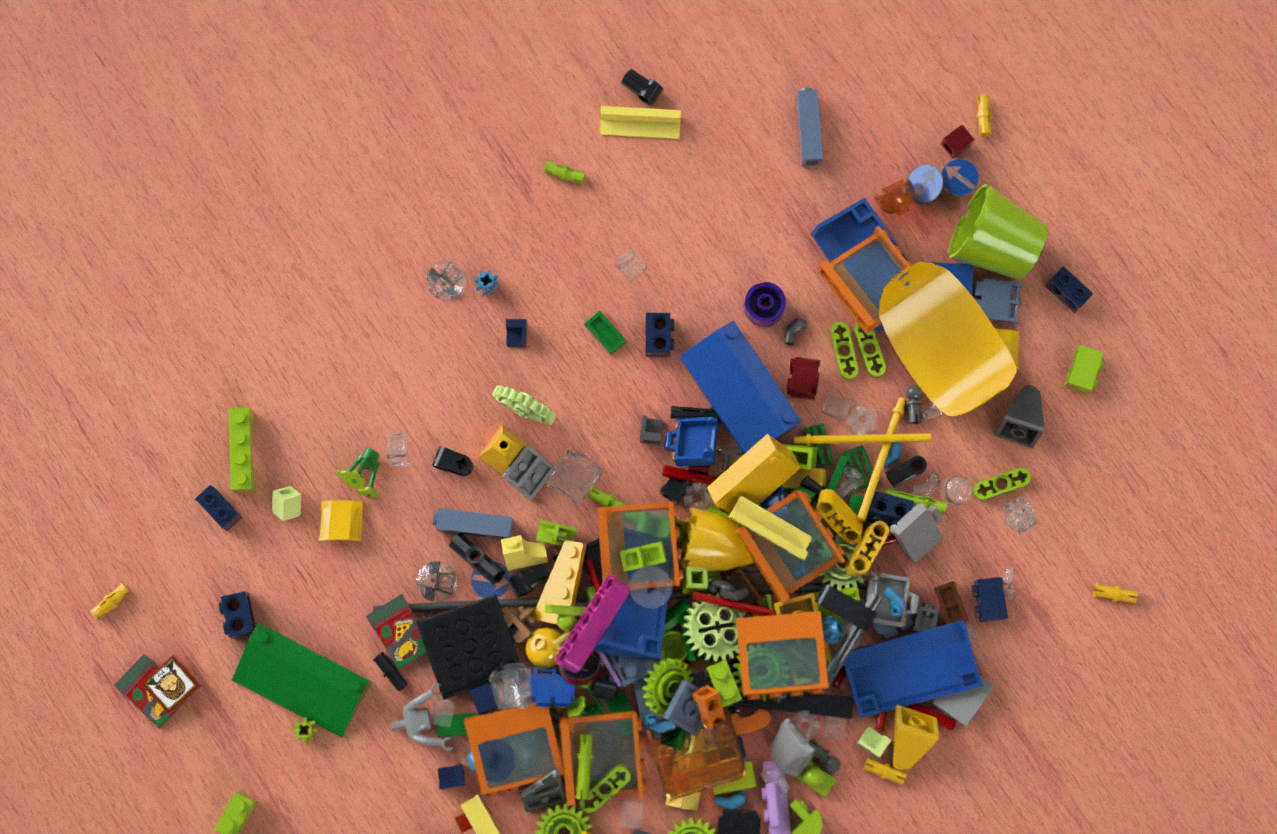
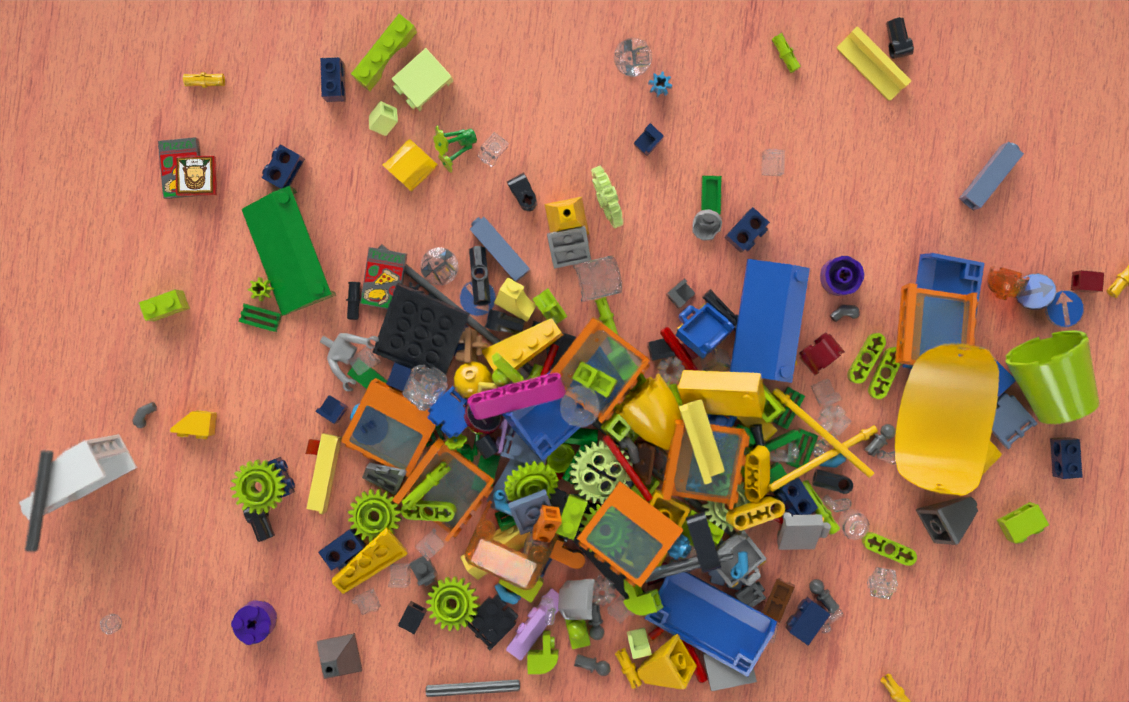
camera: 45 degrees right, 10 degrees up
(291, 445) = (421, 79): none -> yellowish green panel
(308, 763) = (244, 313): none -> green tile
(622, 358) = (706, 224): none -> light grey hair
(735, 595) = (630, 456): dark grey arm -> none
(840, 705) = (640, 602): none -> lime brick
(862, 790) = (602, 668): none -> dark grey pin
(873, 451) = (821, 446): none -> clear arm
(973, 566) = (817, 587): none -> dark grey pin

